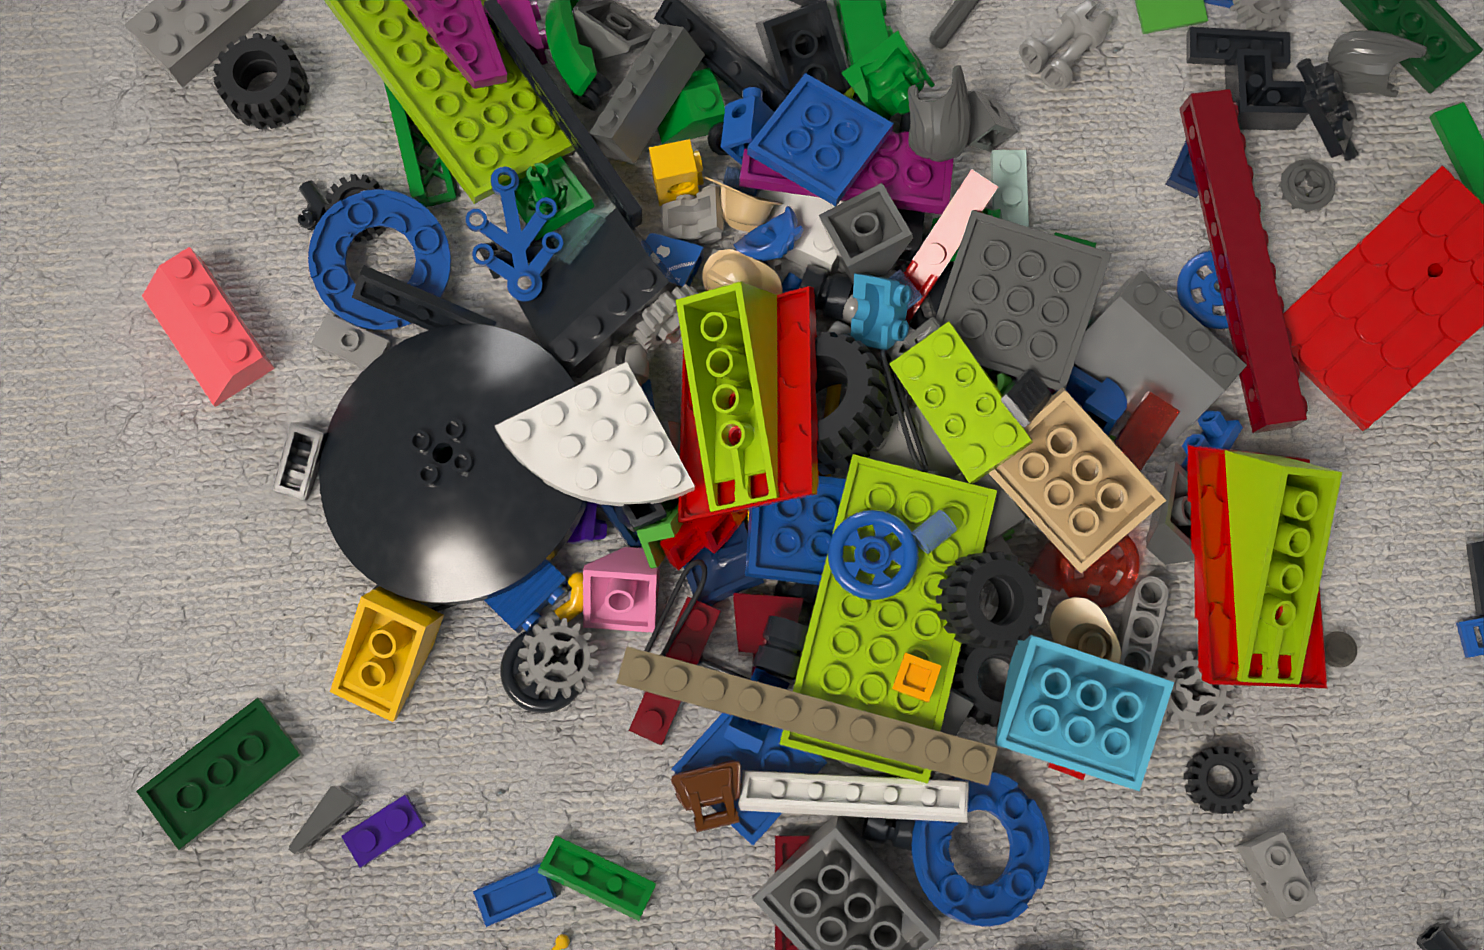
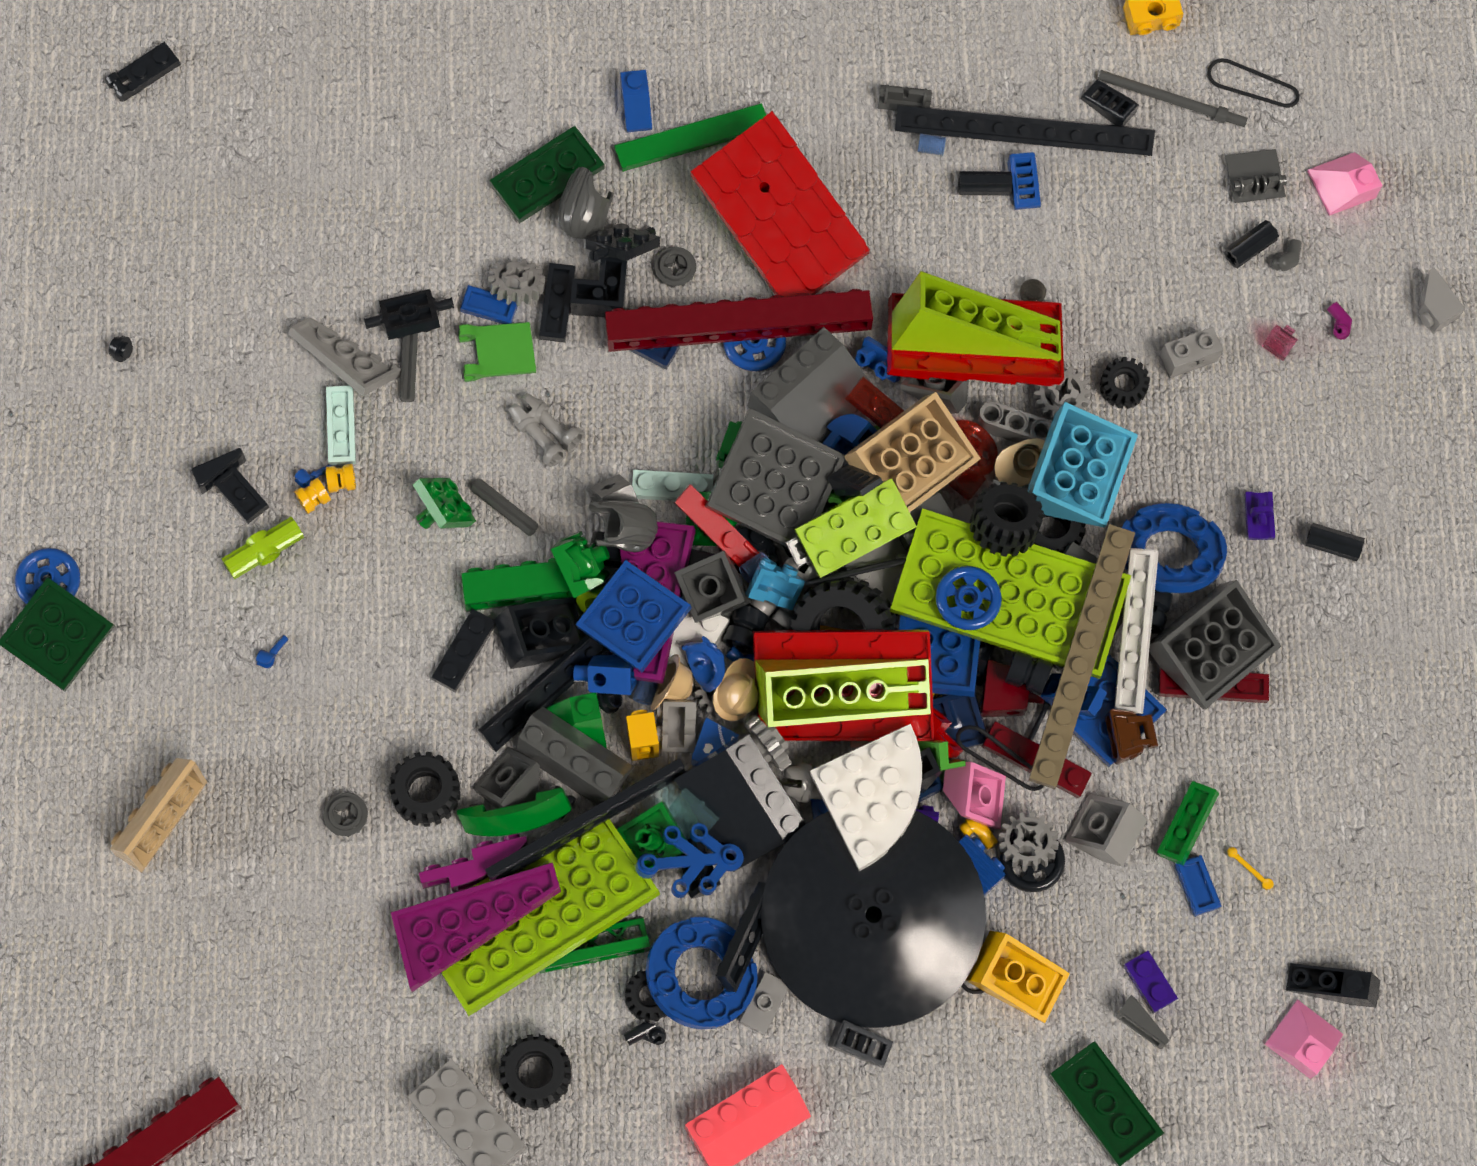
camera: 90 degrees left, 5 degrees down
(583, 766) = (1106, 829): none -> light grey slope
(916, 677) = (1058, 574): light orange plate -> none
(945, 526) = (942, 547): medium blue piece -> none

